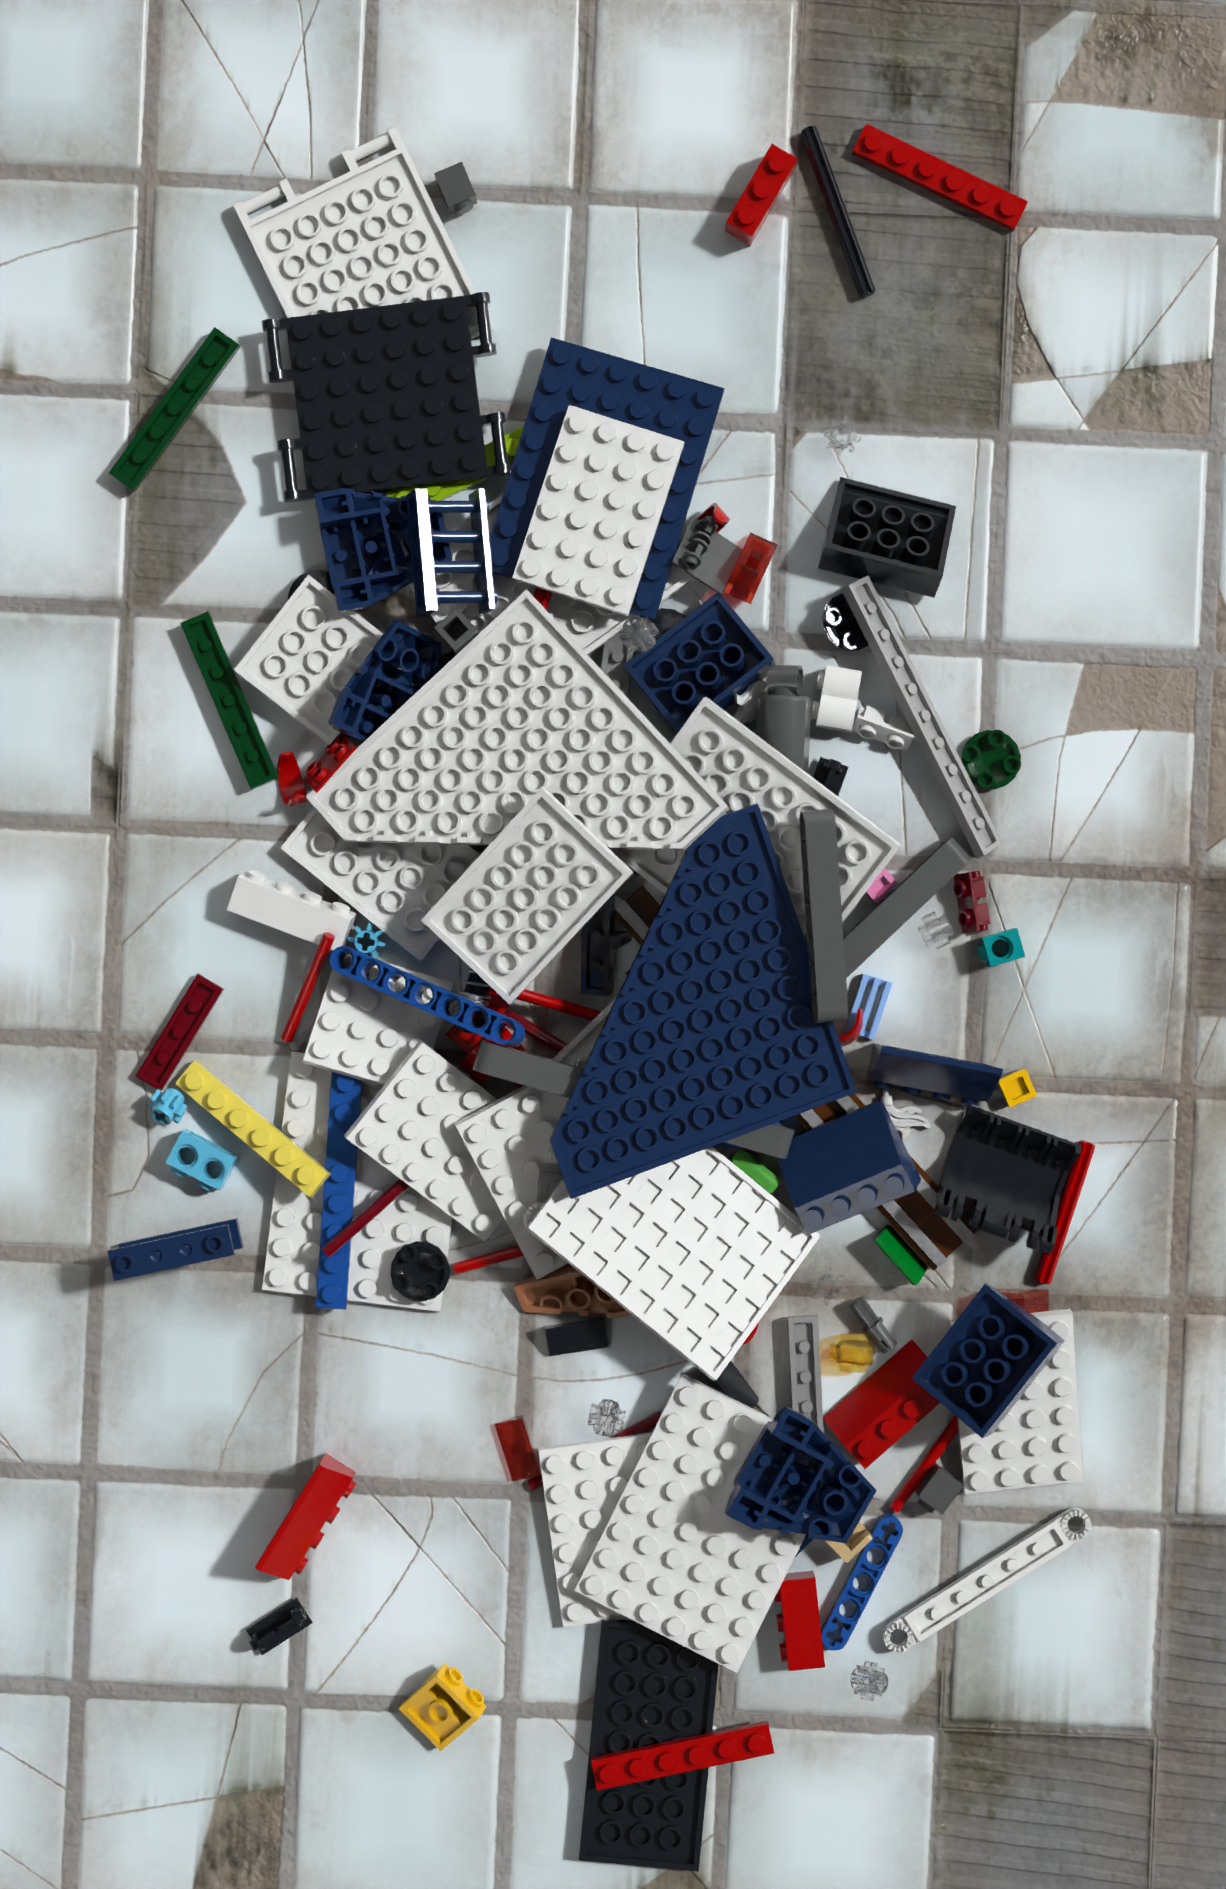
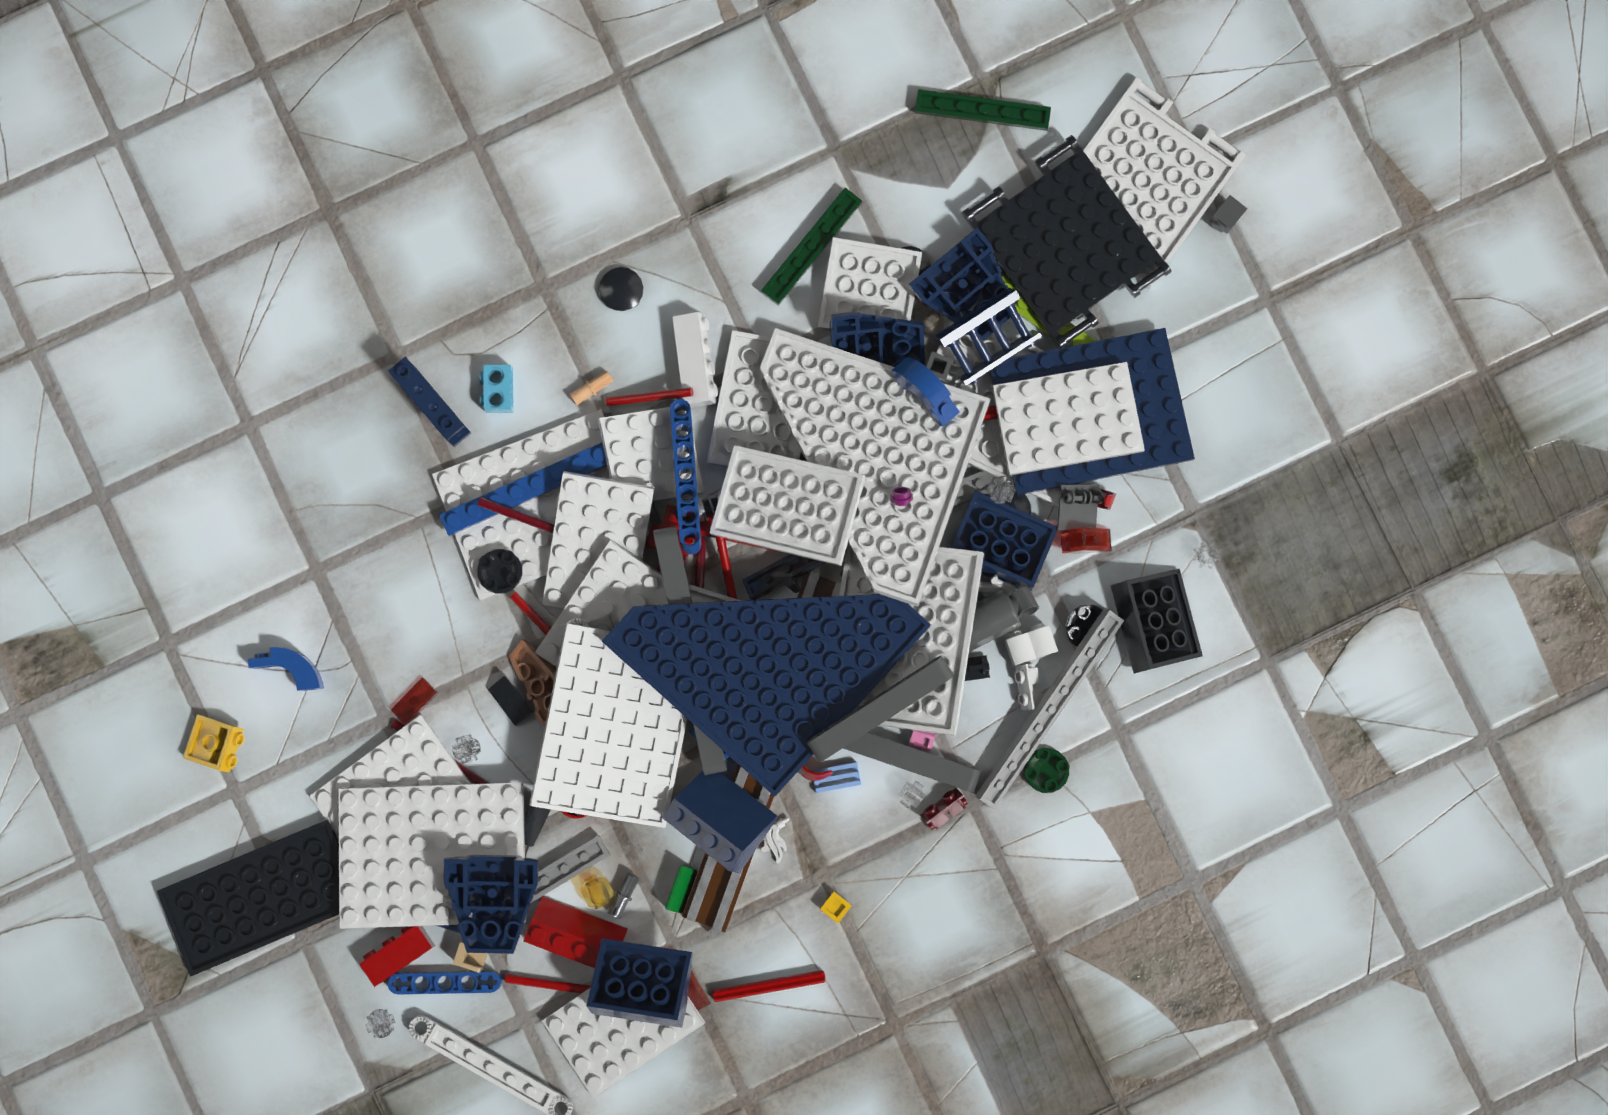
camera: 60 degrees right, 5 degrees down
(160, 952) = (621, 289): none -> black dish
(167, 1106) = (521, 347): medium azure gear -> none
(179, 1032) = (574, 330): dark red tile -> none
(253, 1128) = (536, 411): light yellow plate -> none
(259, 1049) = (591, 387): none -> light nougat axle
(278, 1626) = (211, 605): black hinge -> none
(290, 781) = (780, 314): red helmet -> none
(306, 1518) = (294, 584): red slope -> none
(336, 754) = (813, 333): red hinge -> none
(374, 936) = (706, 422): medium azure gear -> none
(408, 1560) = (303, 670): none -> blue arch
(476, 656) = (928, 388): none -> blue arch
(588, 757) = (901, 496): none -> magenta plate
(682, 1755) = (264, 922): red plate -> none
(755, 1171) = (685, 760): bright green bar -> none
(760, 194) = (1335, 415): red brick -> none
(838, 211) = (1353, 472): black axle -> none
(932, 1073) = (814, 842): dark blue slope -> none
(938, 1489) = (535, 1000): dark grey brick -> none
(939, 177) = (1413, 527): red plate -> none
(1007, 1176) = (771, 931): black hinge -> none
(1013, 944) = (931, 852): teal brick -> none

